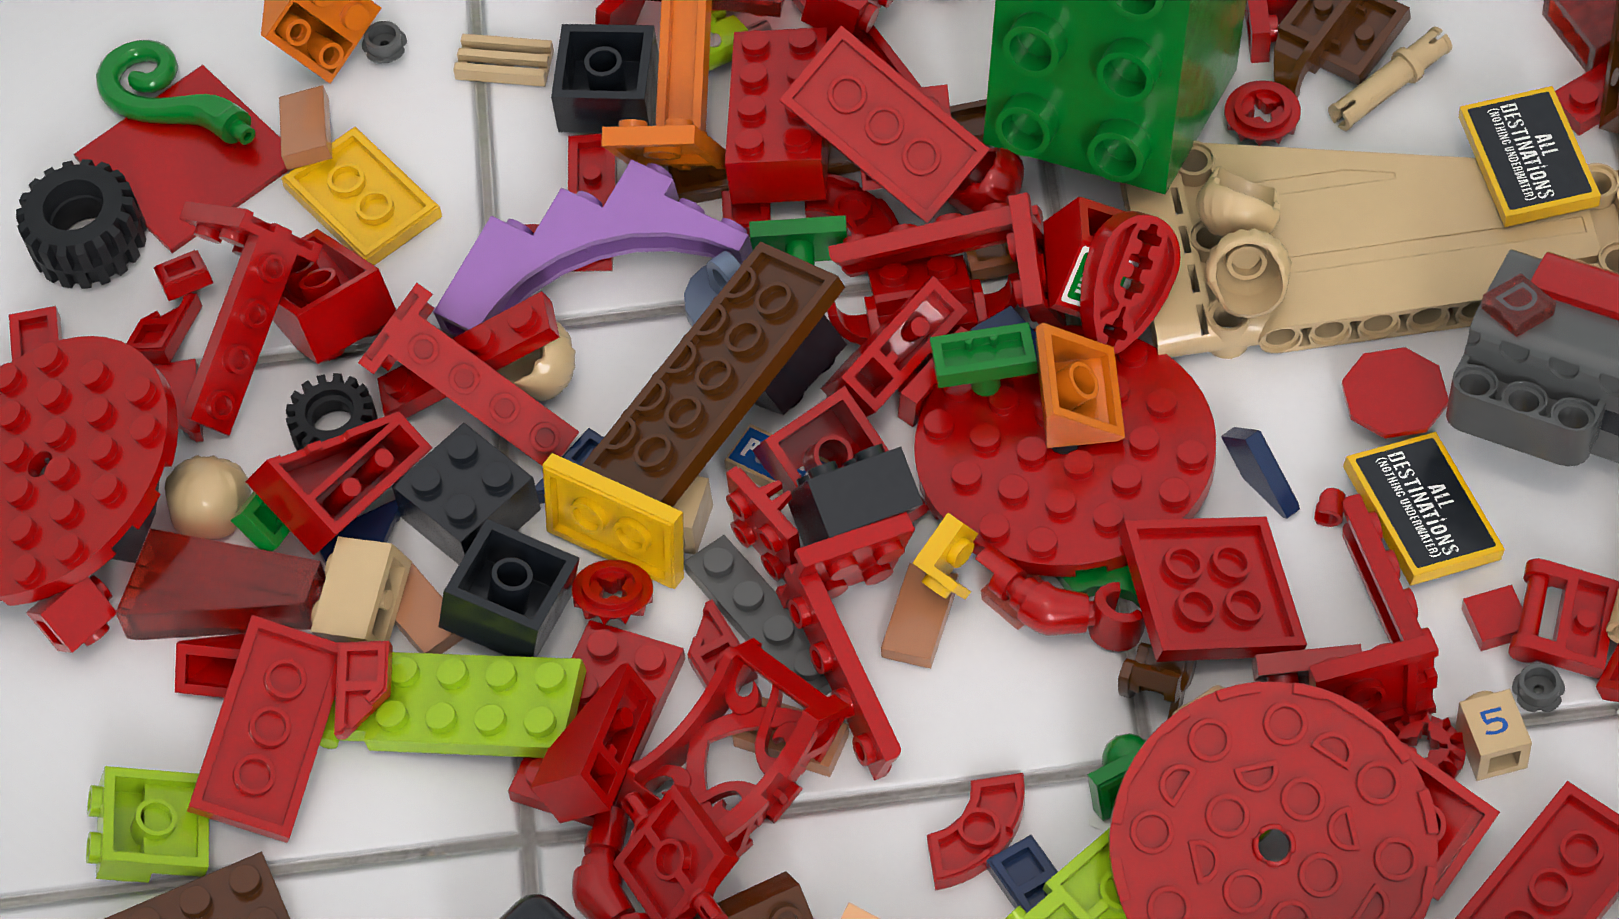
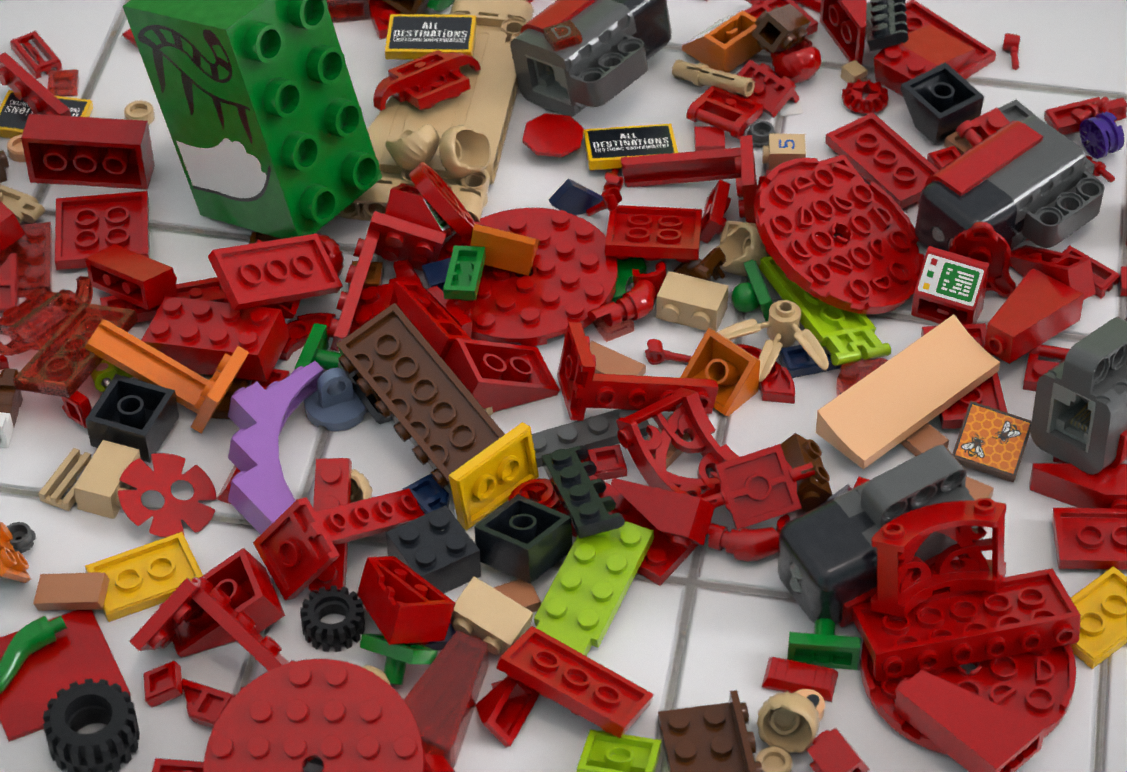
camera: 80 degrees left, 10 degrees down
(361, 683) = (564, 623): red tile -> none
(500, 130) = (166, 471): none -> red piece
(502, 95) = (99, 482): none -> tan brick
(591, 167) = (201, 448): red plate -> none
(608, 632) = (579, 493): none -> black hinge
(761, 523) = (533, 402): red piece -> none
(853, 496) = (540, 351): black brick -> none
(936, 766) = (729, 366): none -> orange slope
(945, 550) = (598, 338): yellow bracket -> none
(968, 667) = (656, 354): none -> red hand
(1071, 822) = (783, 330): none -> tan plant
(1084, 685) = (692, 301): none -> tan brick
(1261, 504) = (611, 199): none -> red hand
(1415, 182) = (426, 80): none -> red plate

